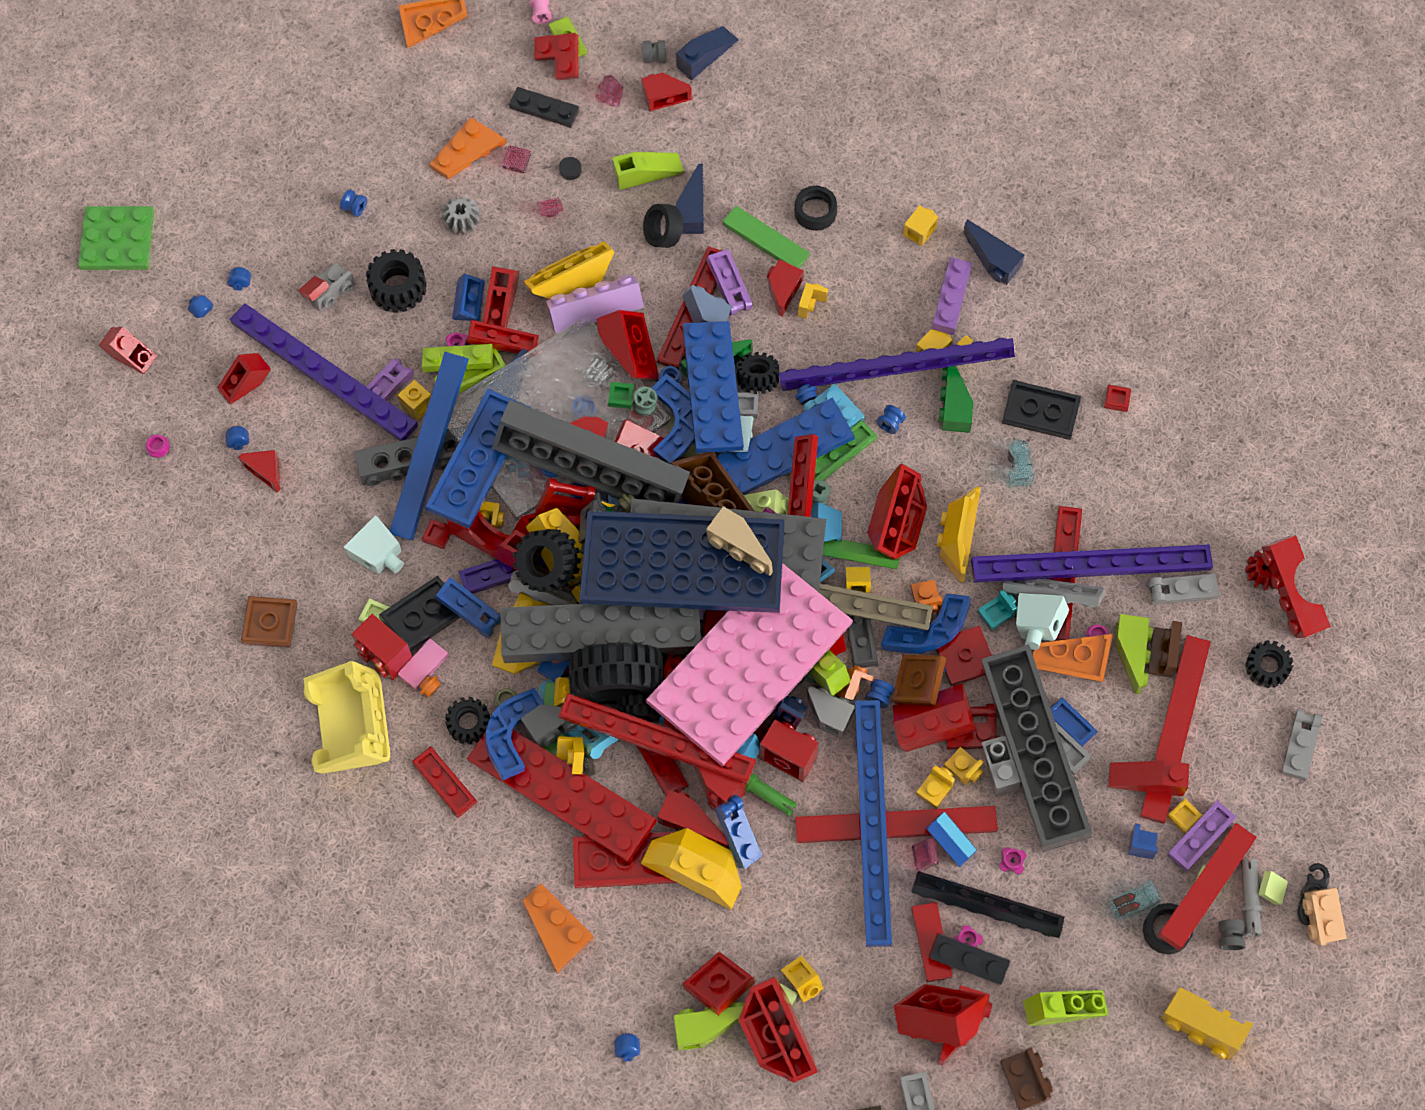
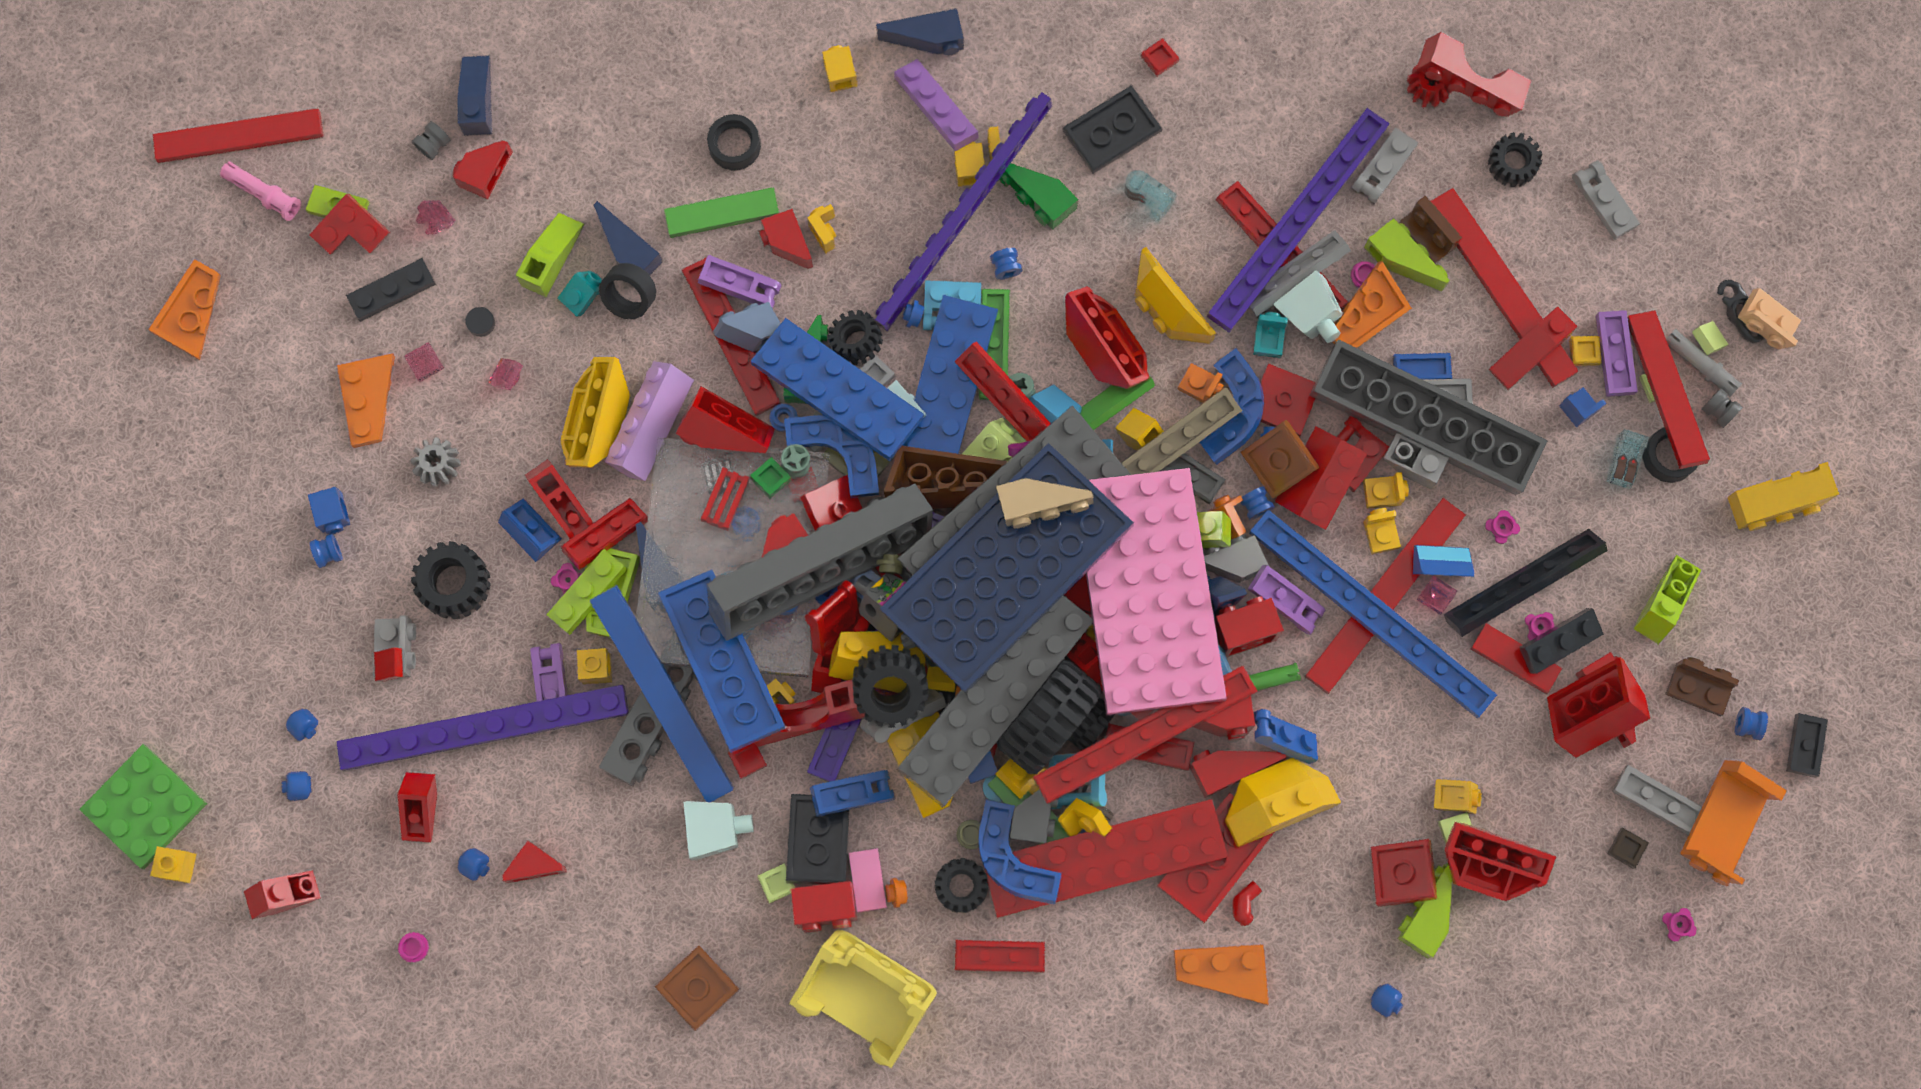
camera: 50 degrees left, 10 degrees up
(94, 279) = (173, 864): none -> yellow brick
(379, 184) = (329, 510): none -> blue brick
(580, 382) = (734, 477): none -> red tile
(608, 901) = (1242, 903): none -> red arm
(638, 203) = (580, 292): none -> teal bracket
(832, 761) = (1287, 598): none -> medium lavender plate

